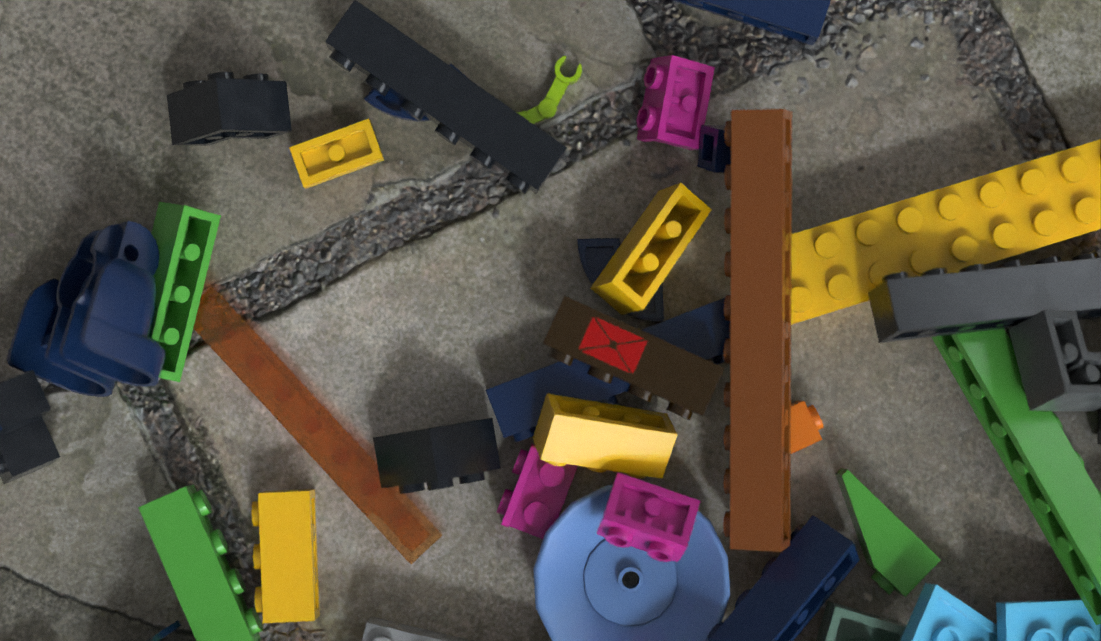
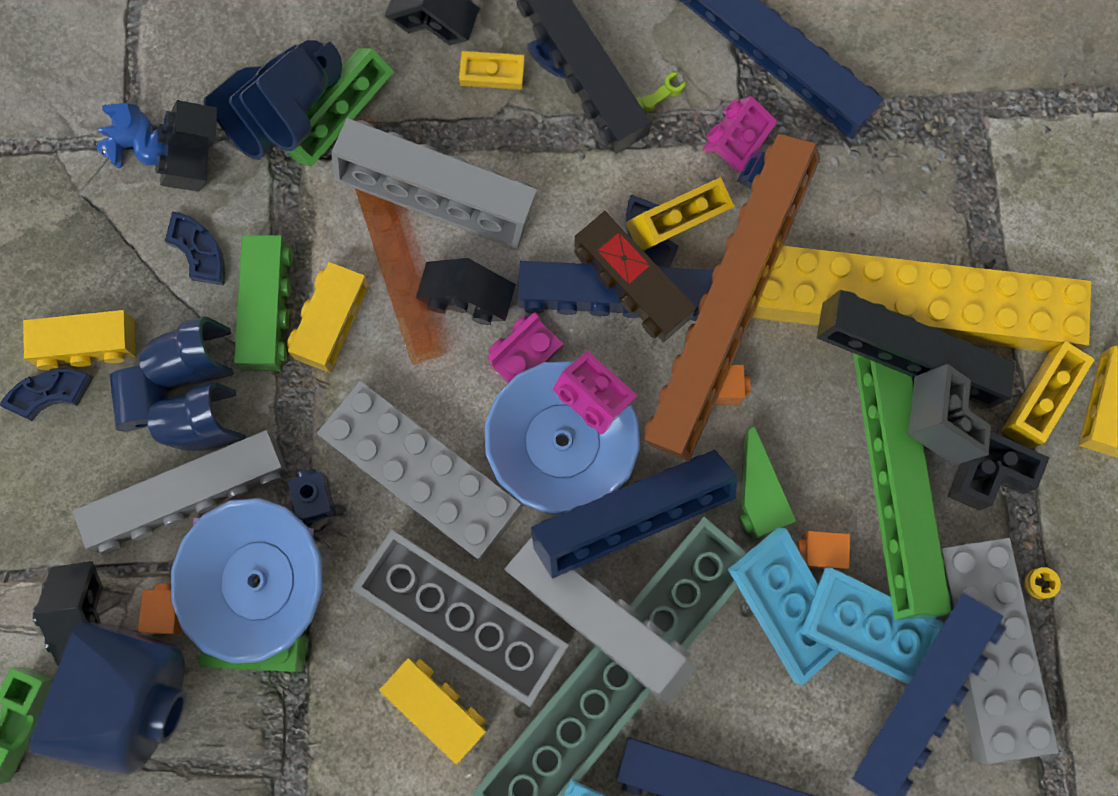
camera: 30 degrees right, 10 degrees down
(87, 535) = (200, 248): none -> dark blue tile
(339, 344) = (432, 182): none -> light grey brick
(604, 437) = (588, 327): yellow brick -> none
(984, 574) = (825, 550): none -> orange brick

